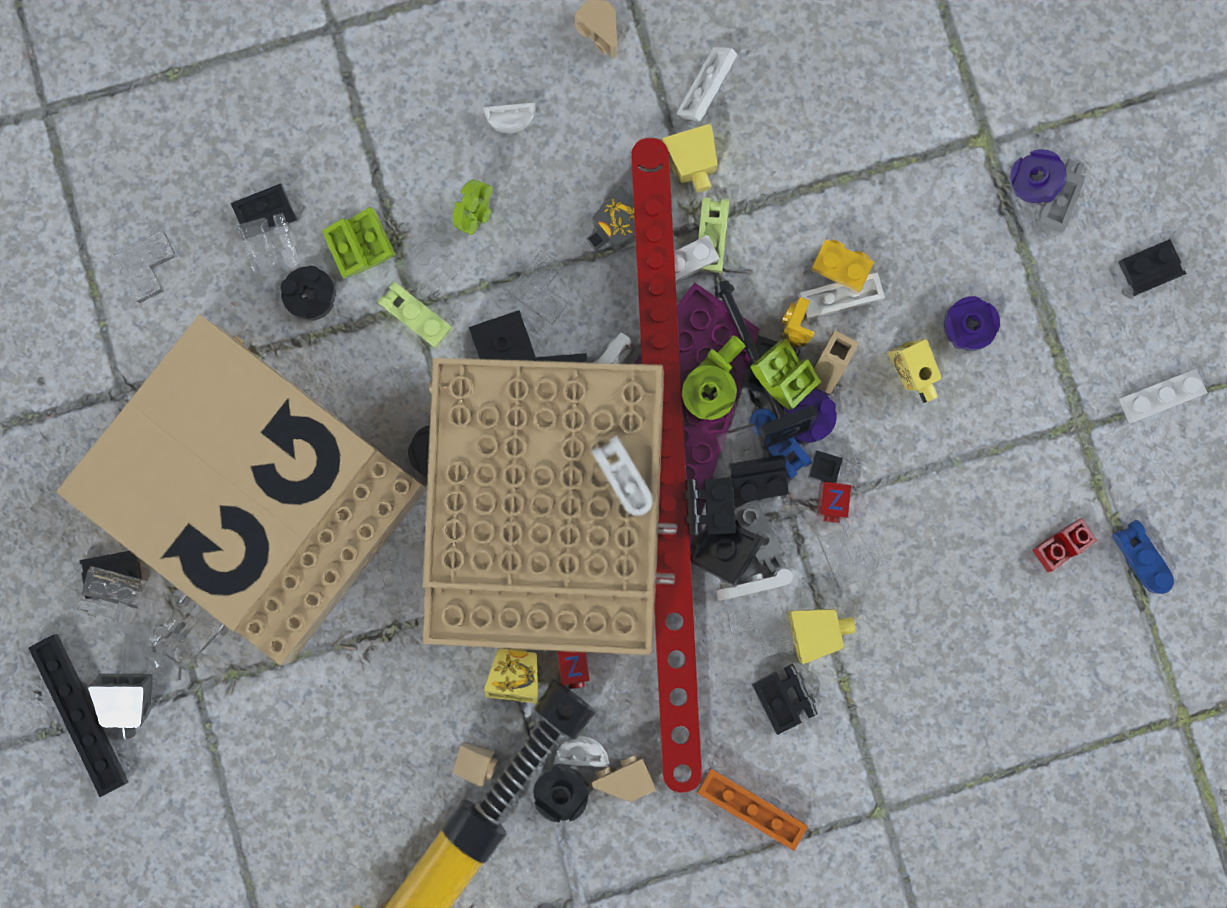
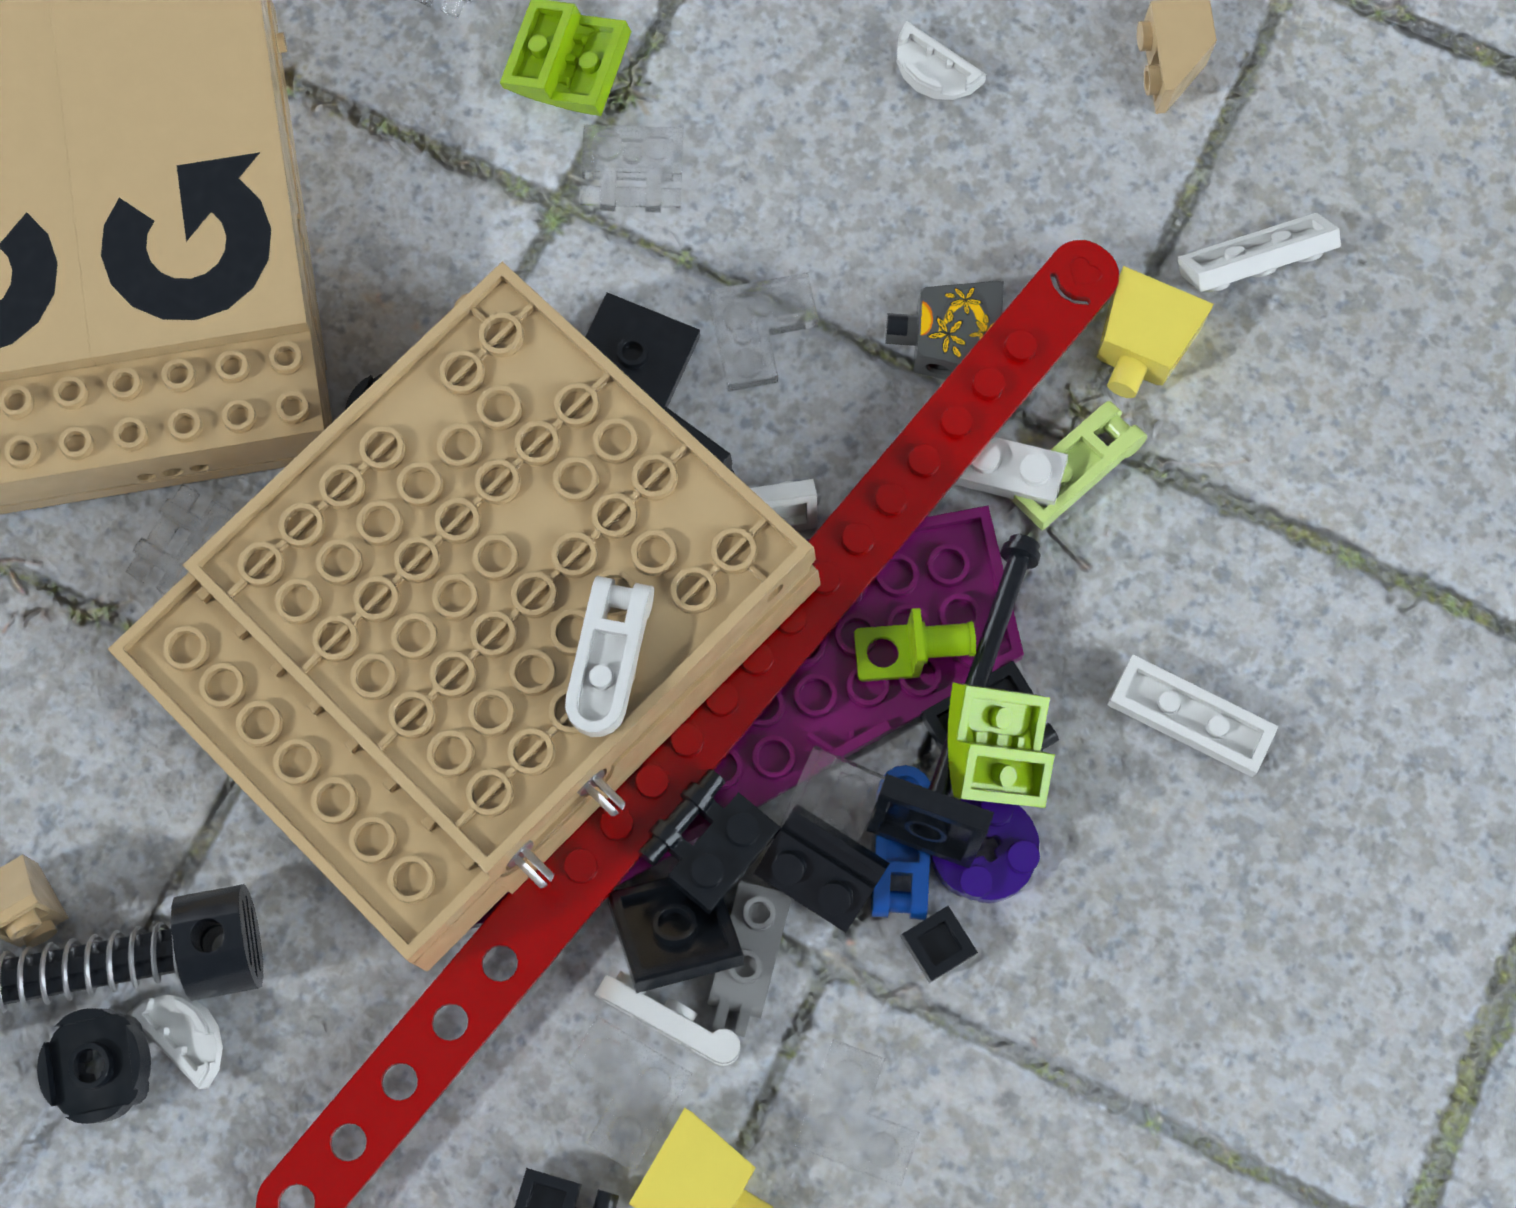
camera: 40 degrees right, 10 degrees down
(294, 286) = (428, 38): black plate -> none
(415, 315) = (549, 217): yellowish green plate -> none
(473, 207) = (764, 133): lime plate -> none
(513, 676) = (195, 827): light yellow torso -> none
(573, 668) = (293, 896): red brick -> none
(626, 781) = (206, 1139): tan slope -> none
(713, 377) = (844, 648): lime plate -> none
(792, 319) = (1092, 677): yellow bracket -> none
(833, 501) = (904, 1005): red brick -> none
(834, 360) = (1092, 795): tan slope -> none
(842, 265) = (1233, 669): yellow bracket -> none
(916, 367) = (1227, 899): light yellow torso -> none
(964, 337) = (1389, 920): dark purple plate -> none

